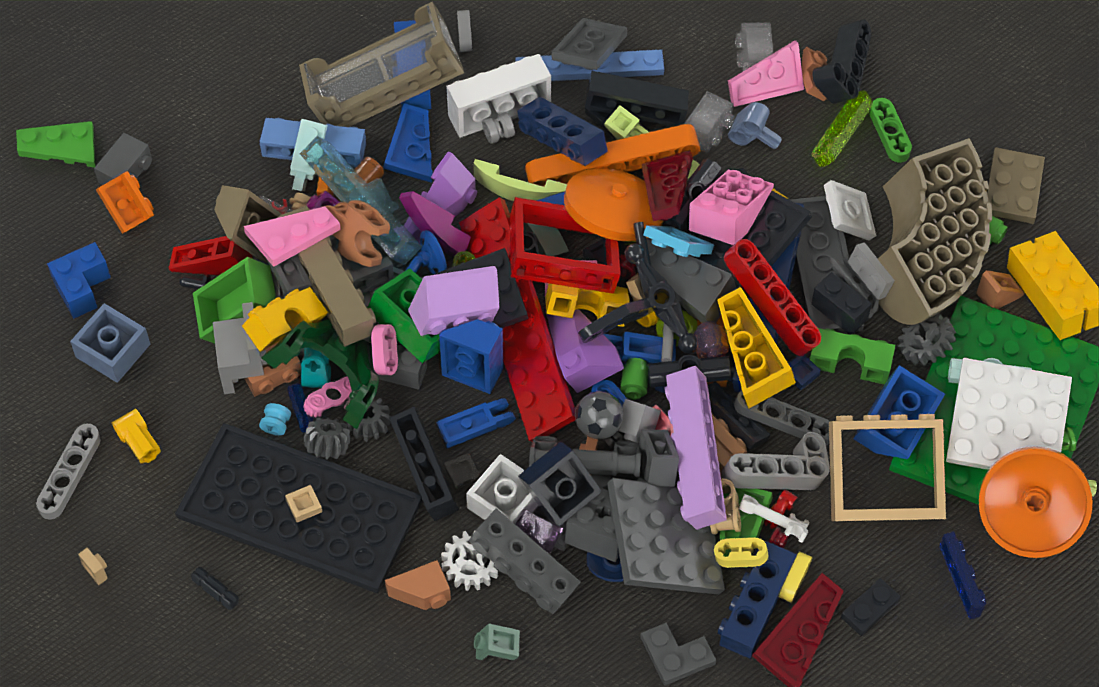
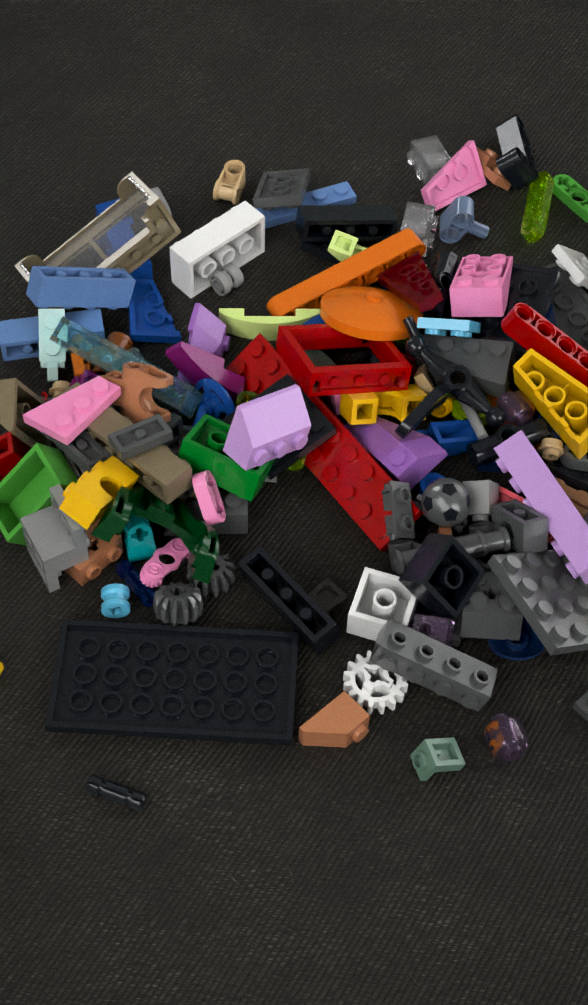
camera: 20 degrees left, 5 degrees down
(303, 503) = (181, 674): tan plate -> none
(337, 278) = (140, 437): none -> dark grey plate
(349, 106) = (80, 287): none -> medium blue brick
(473, 354) = (295, 480): blue slope -> none
(474, 422) = (317, 548): blue hinge -> none
(544, 22) = (231, 182): none -> tan piece
(554, 410) = (398, 499): none -> dark grey hinge
(562, 131) = (292, 263): dark blue brick -> none
(565, 644) = (506, 737): none -> clear purple head
(634, 378) = (456, 463): bright green brick -> none
(727, 390) = (551, 449): none -> tan plate

